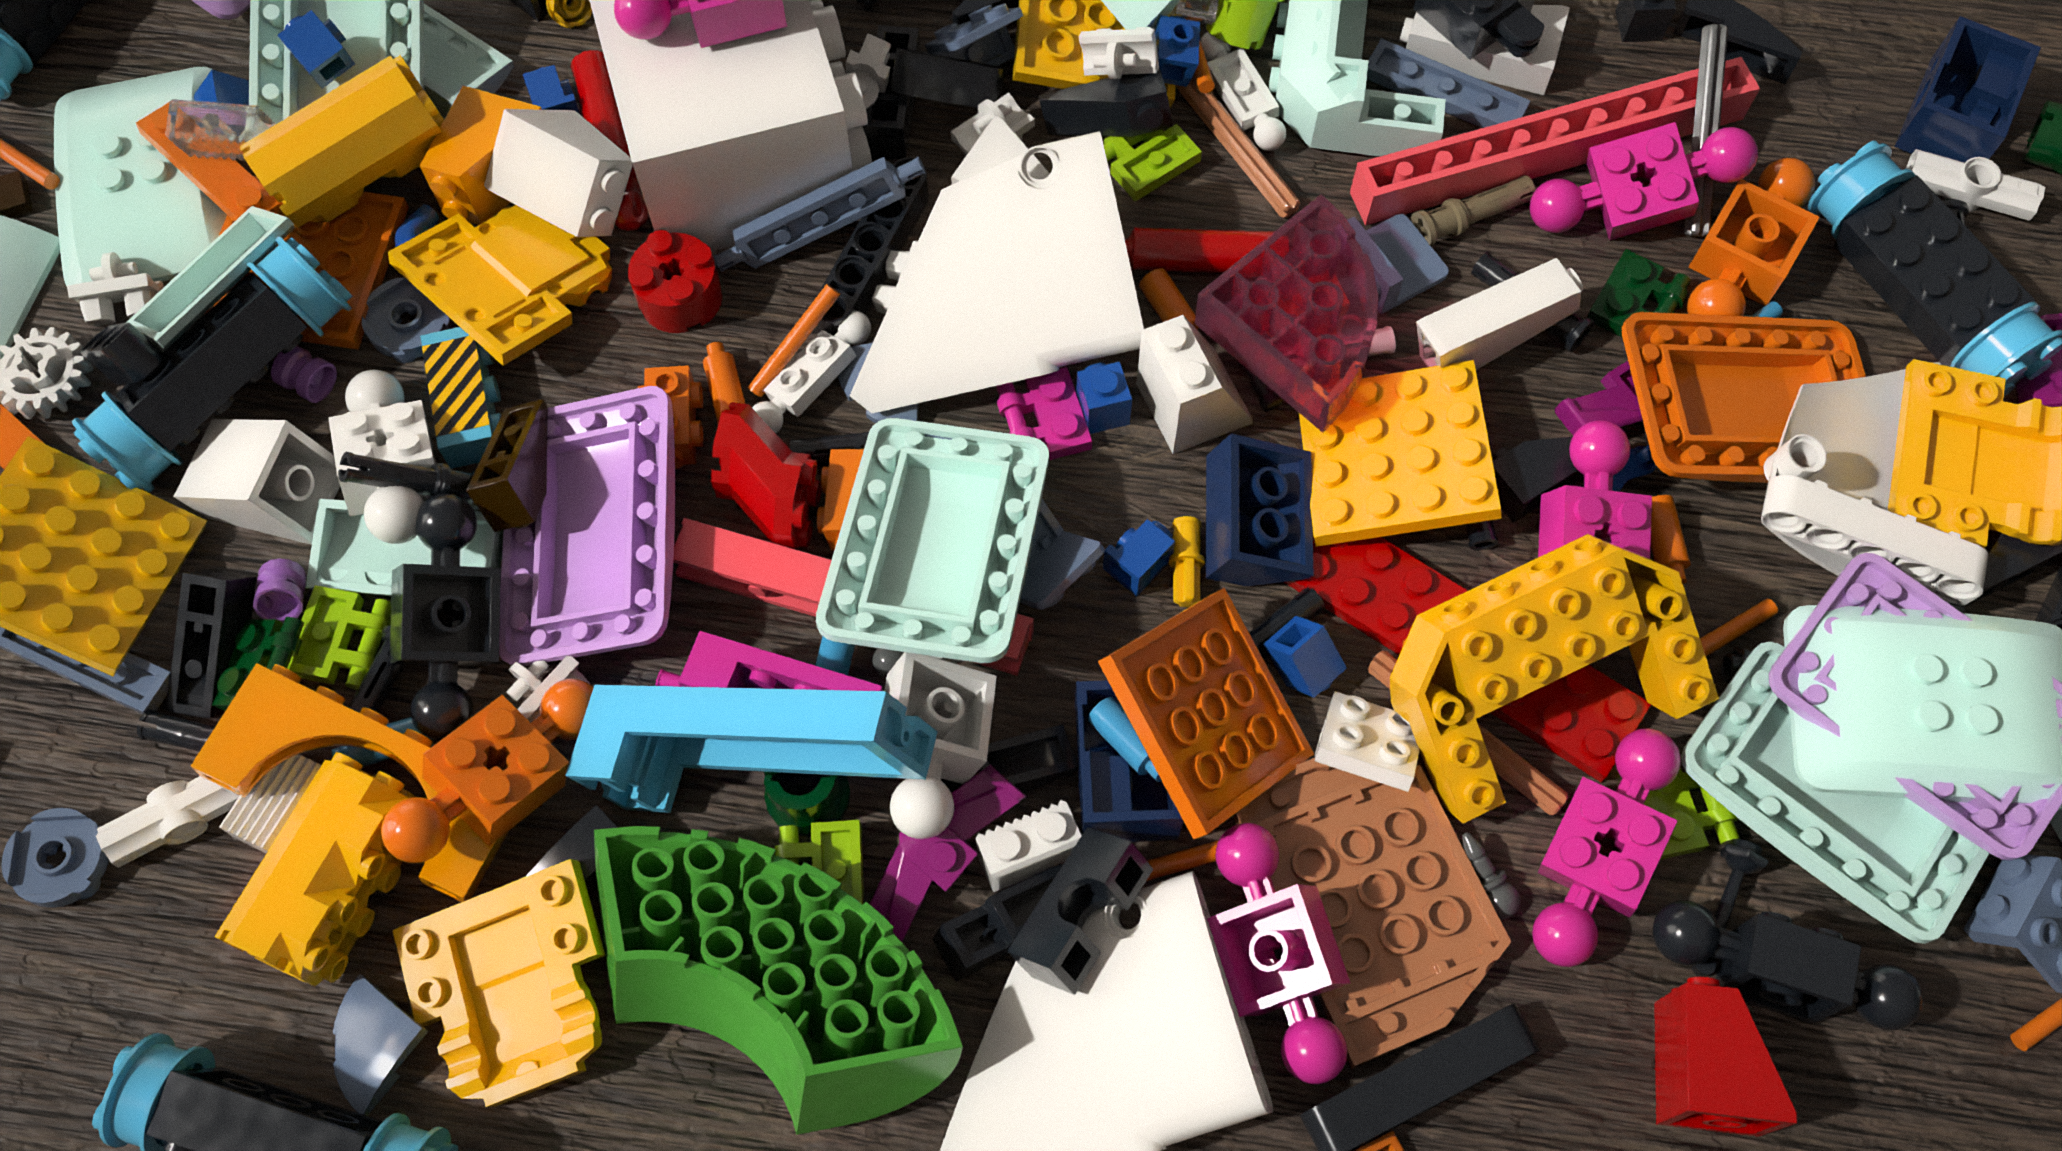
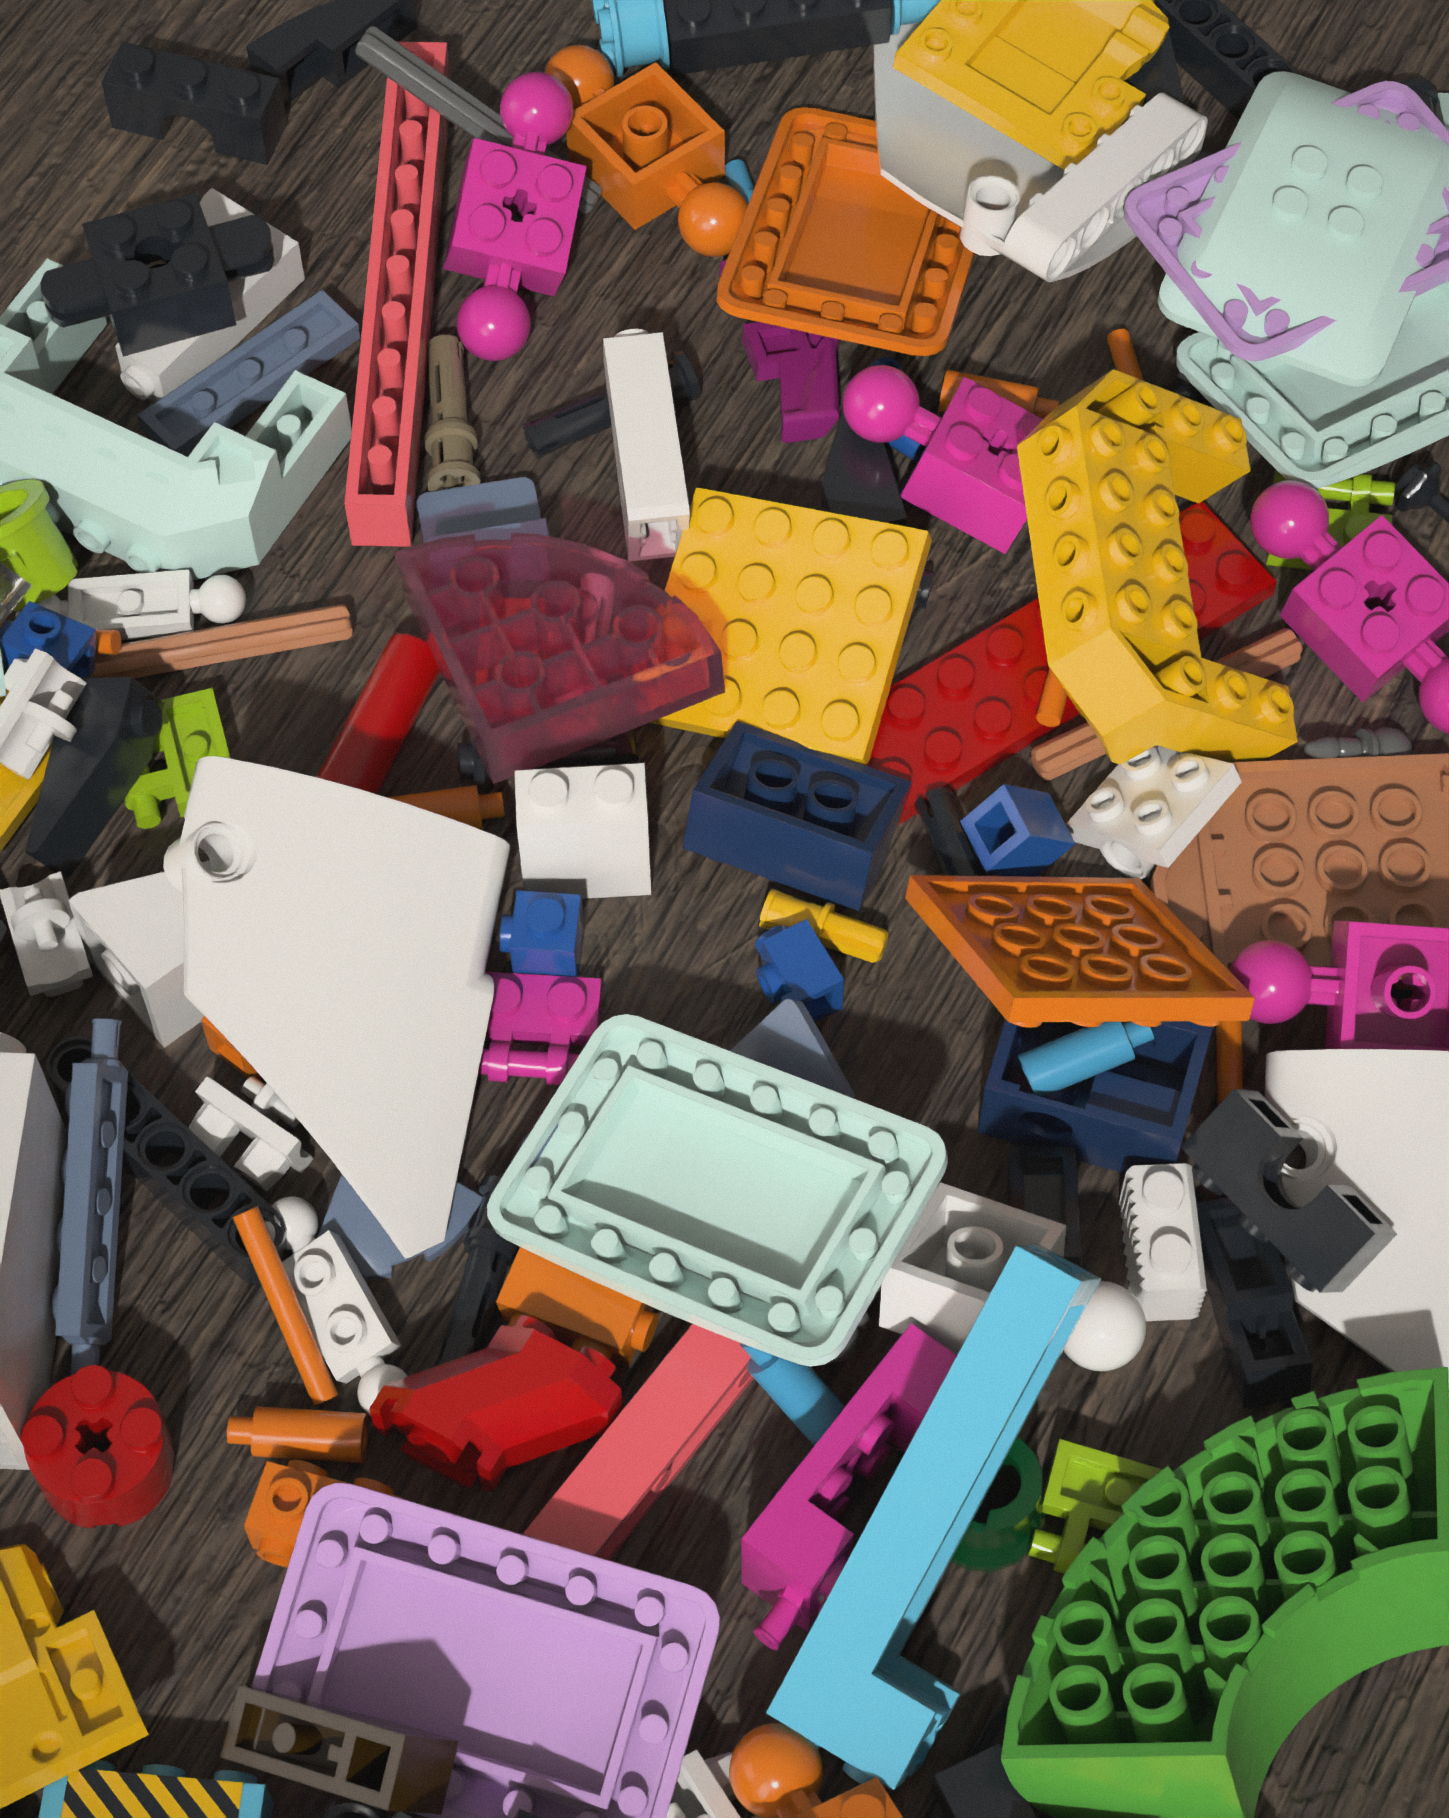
camera: 70 degrees left, 5 degrees down
(945, 856) = (1146, 1387): magenta plate -> none
(1629, 287) = (636, 299): dark green plate -> none

